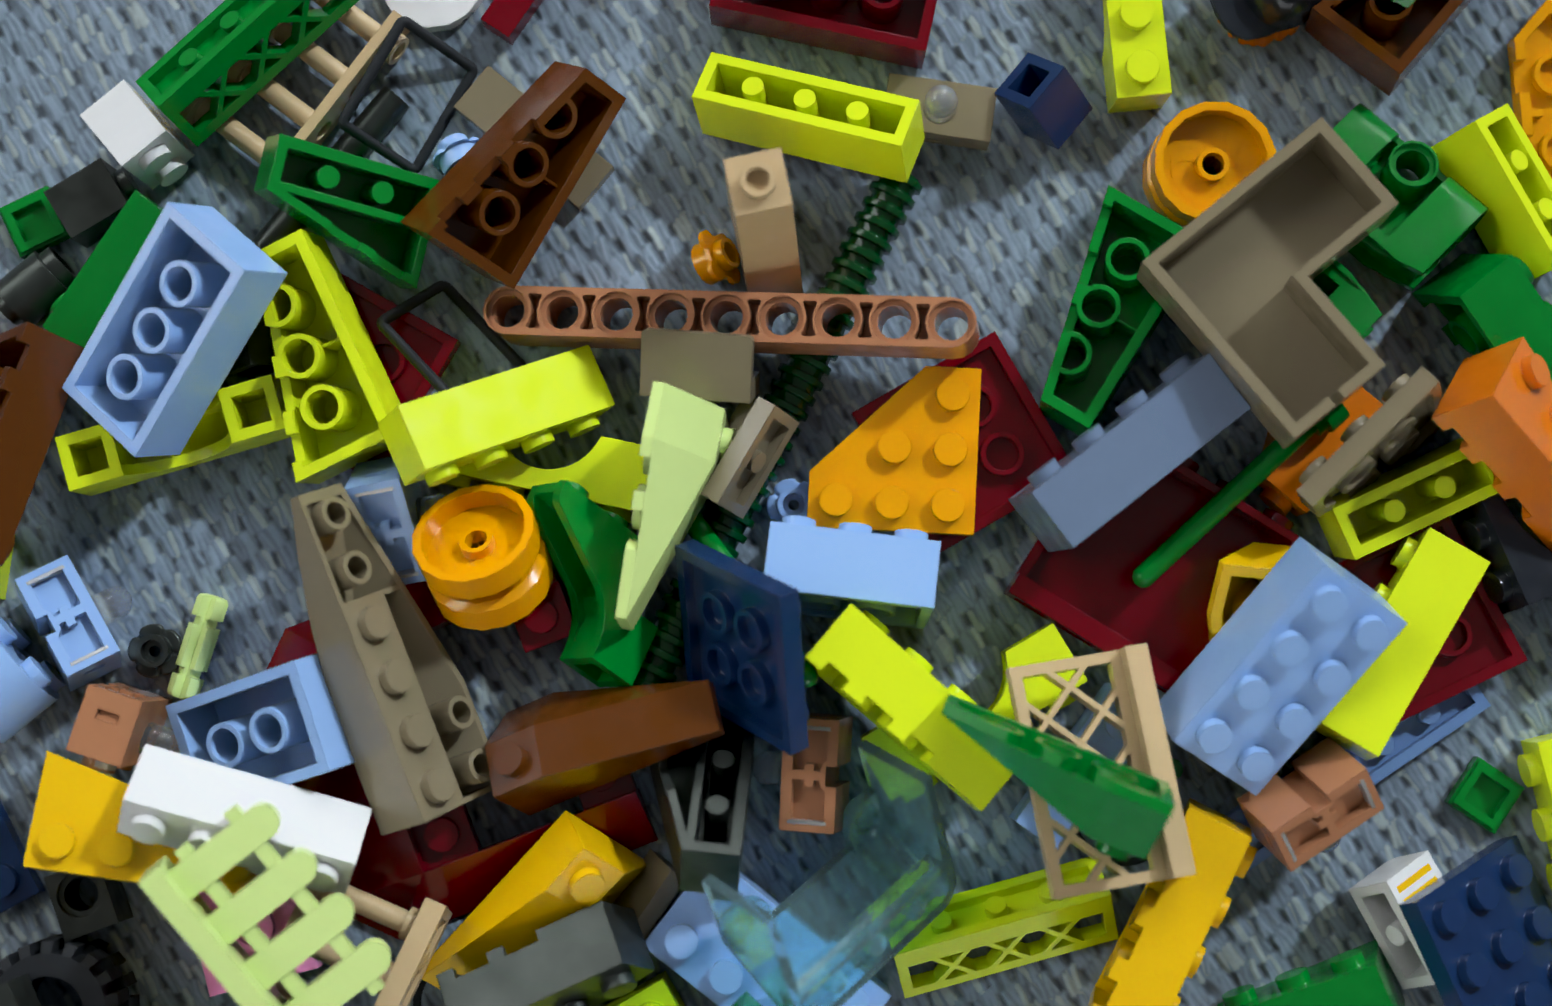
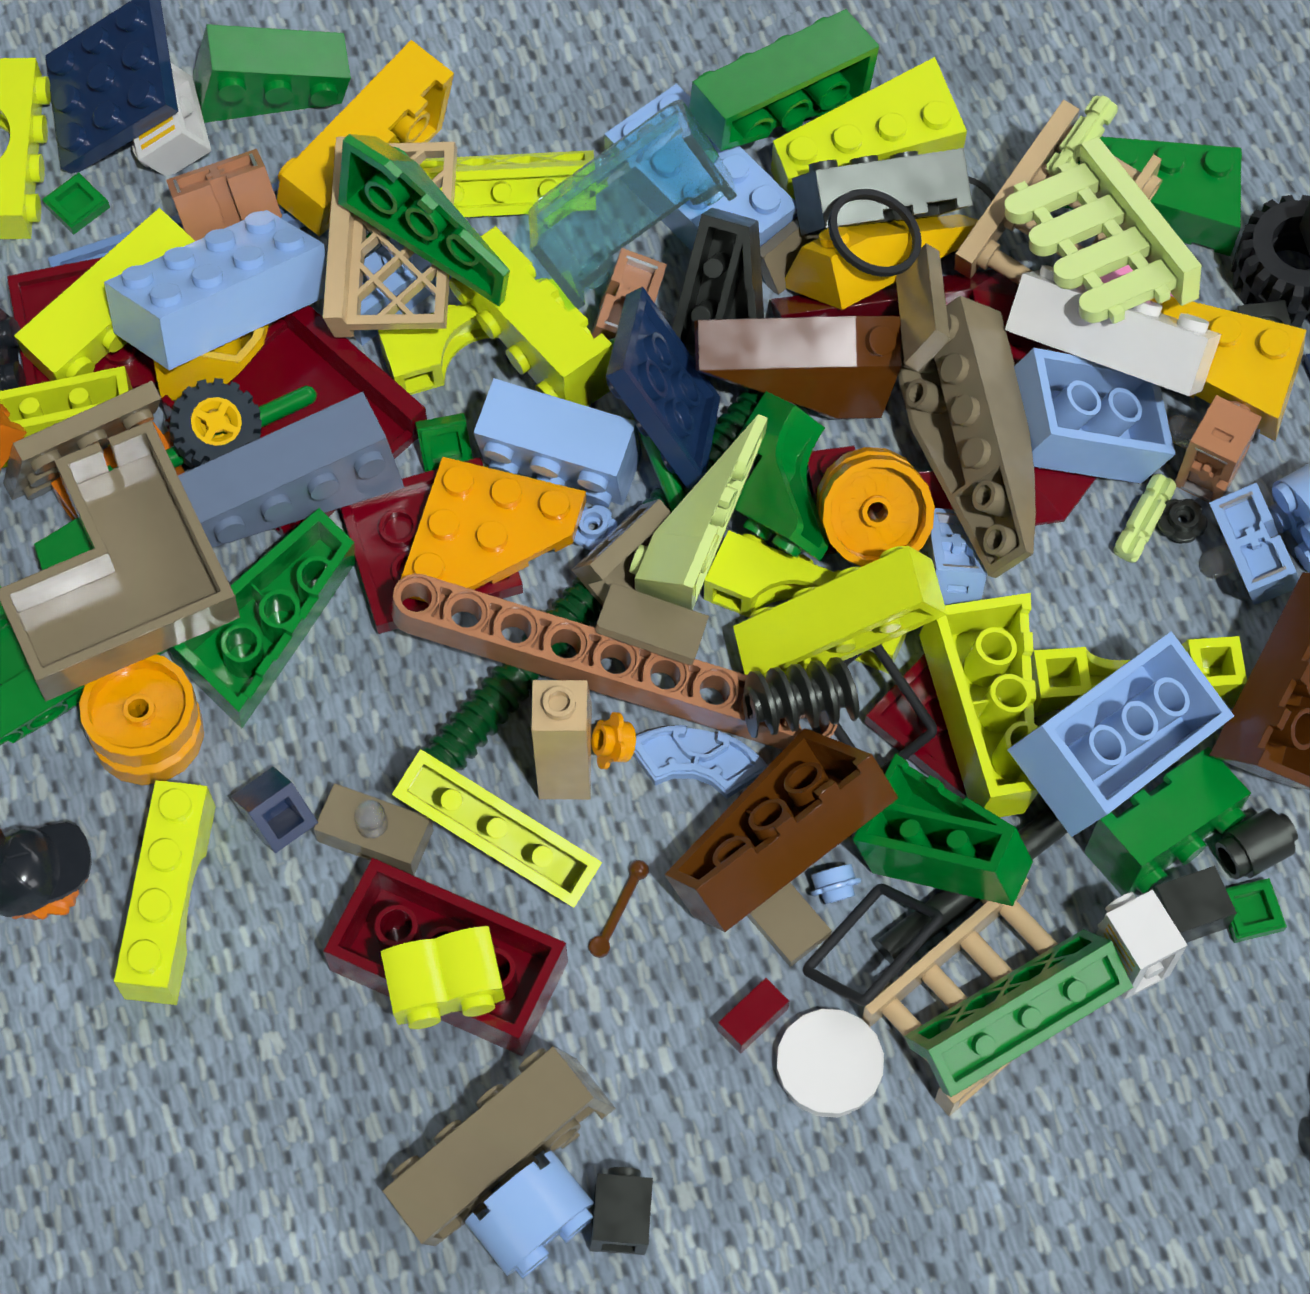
camera: 170 degrees left, 20 degrees down
(468, 809) = (922, 309): none -> dark tan tile
(492, 907) = (855, 261): none -> black piece
(522, 309) = (799, 694): none -> pearl dark grey piece
(640, 265) = (698, 755): none -> light blue tile
(683, 49) = (600, 945): none -> reddish brown hinge
(979, 567) = (443, 438): none -> green tile
(1230, 471) = (221, 409): none -> black wheel

